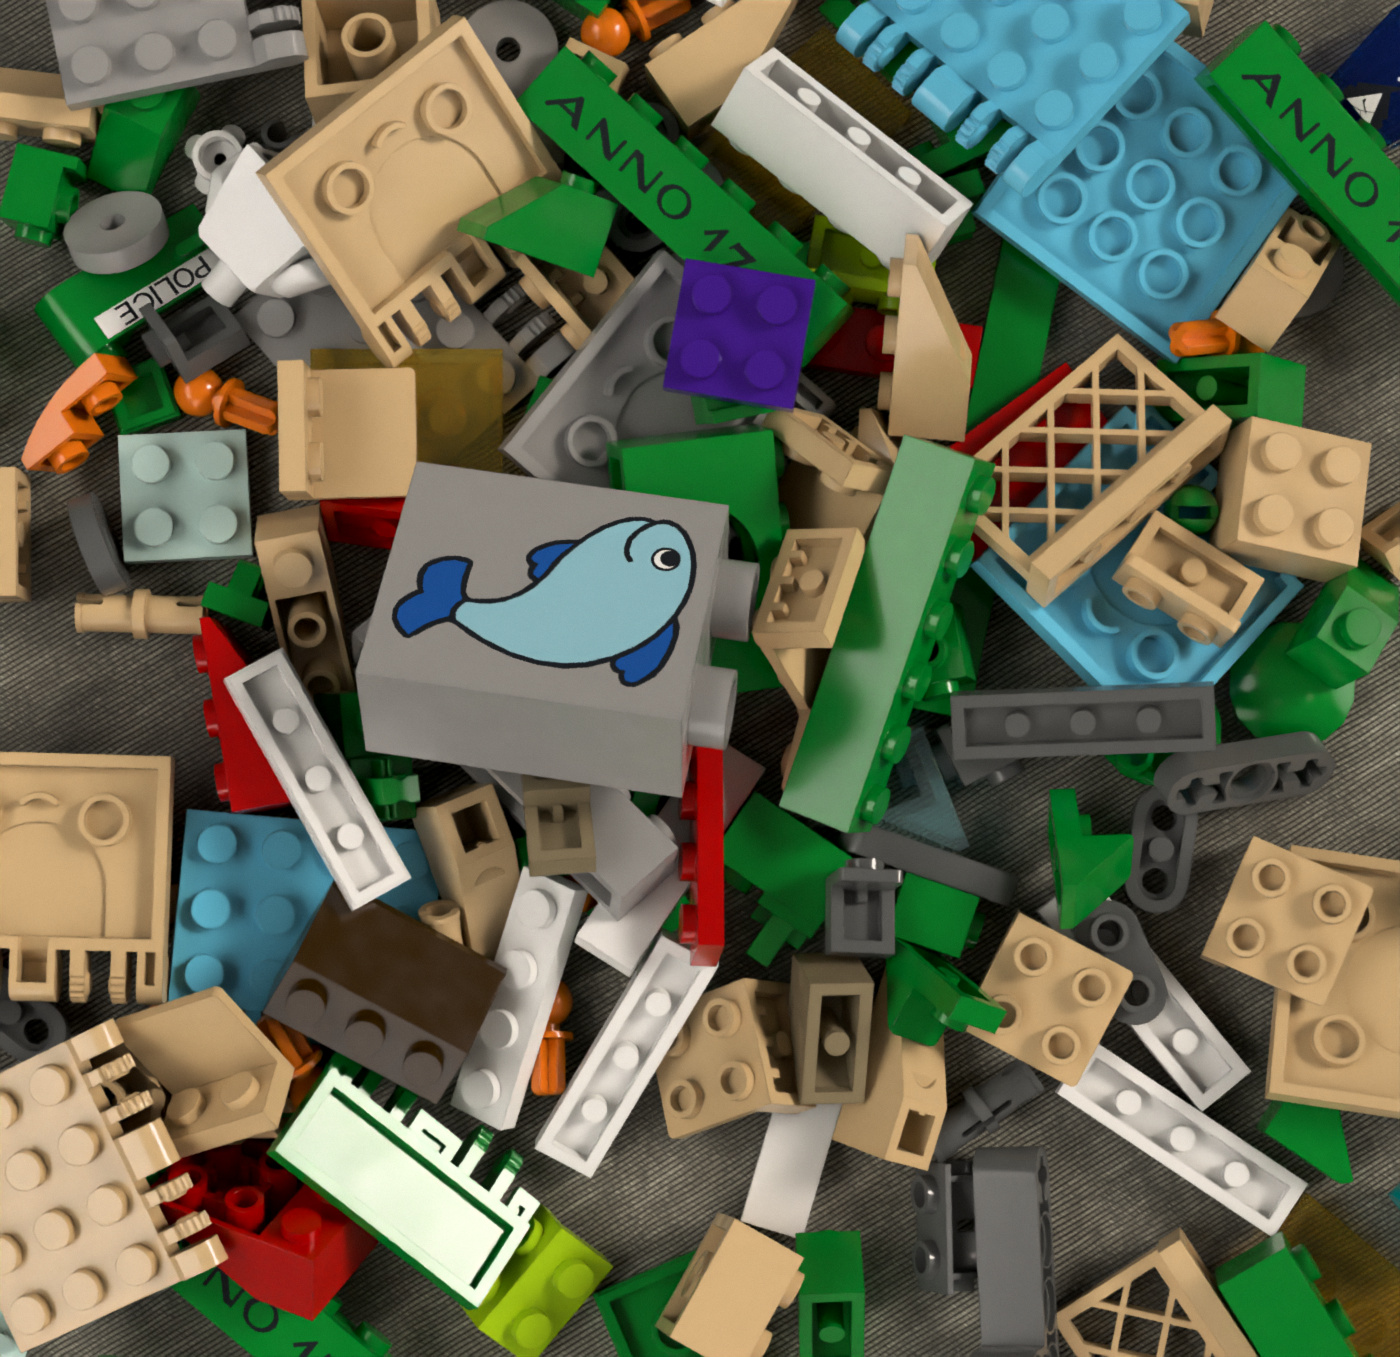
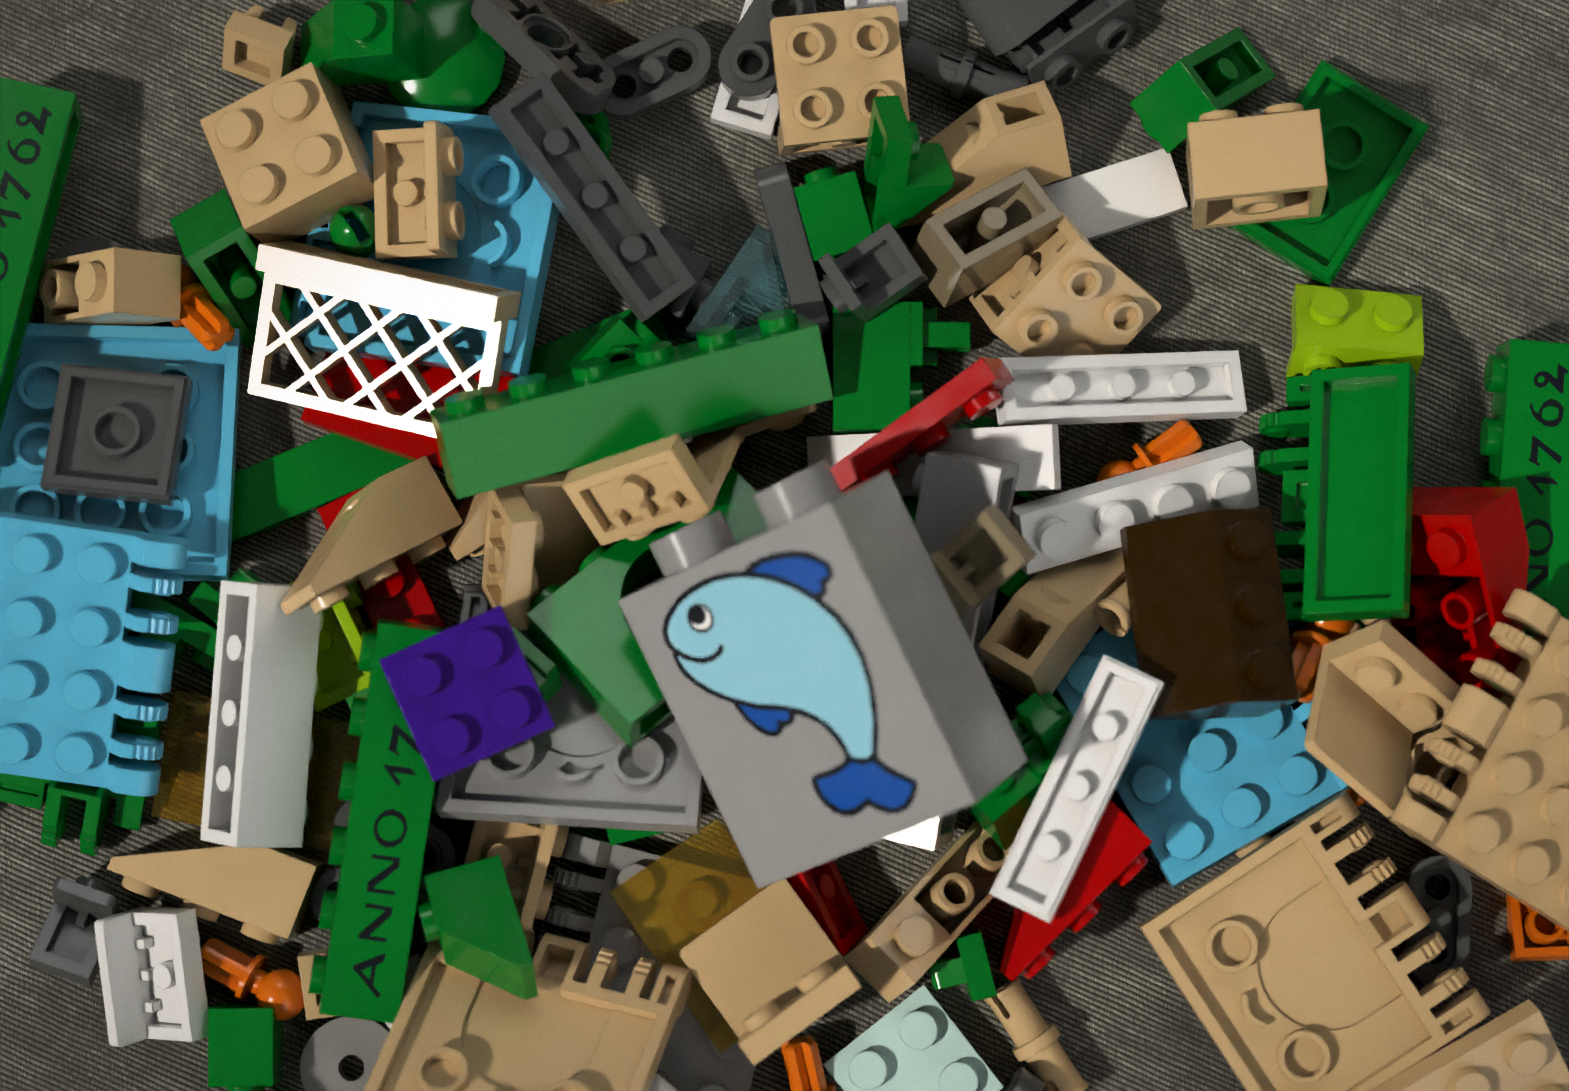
camera: 125 degrees left, 0 degrees up
(1082, 864) = (710, 122): green slope -> none
(1153, 202) = (117, 434): none -> dark grey tile

